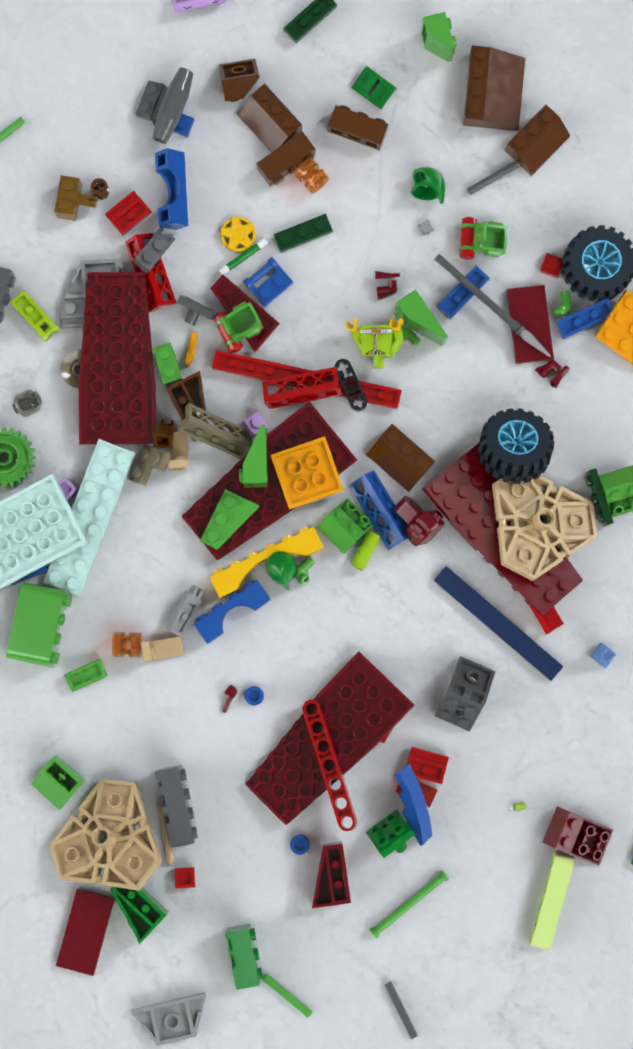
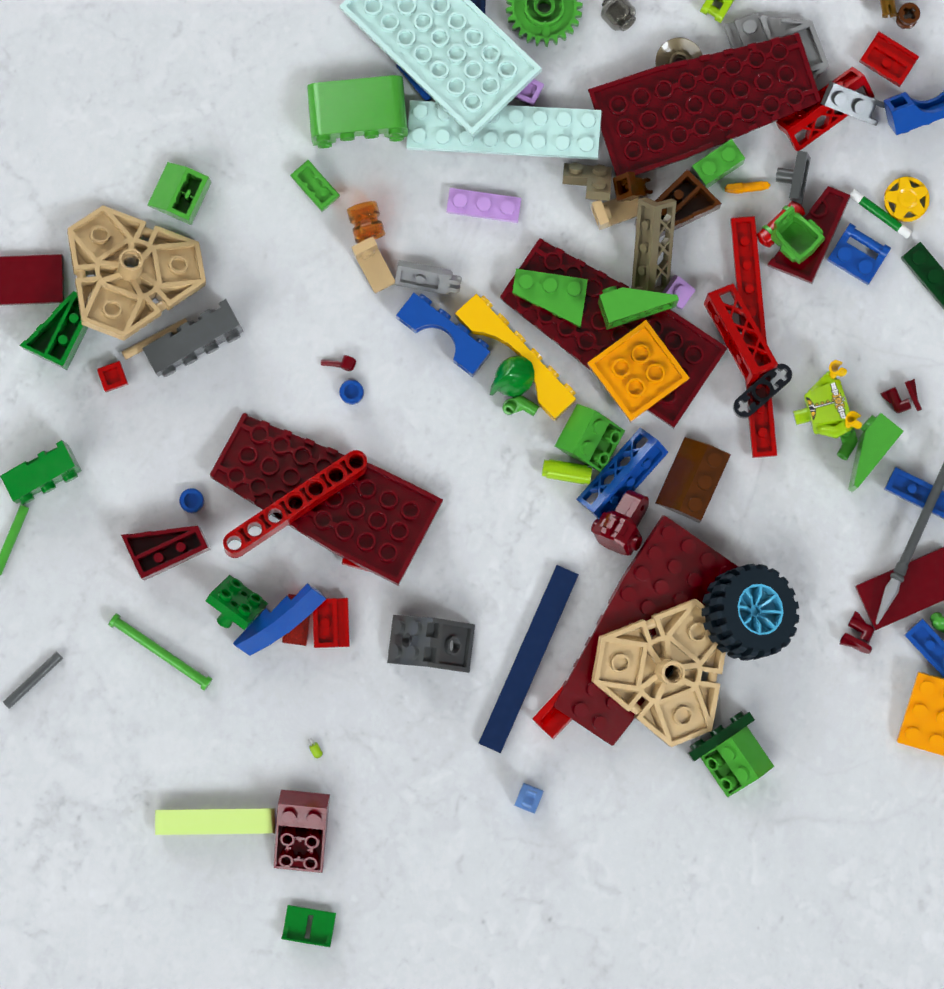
camera: 80 degrees right, 0 degrees up
(142, 550) = (483, 205): none -> lavender plate

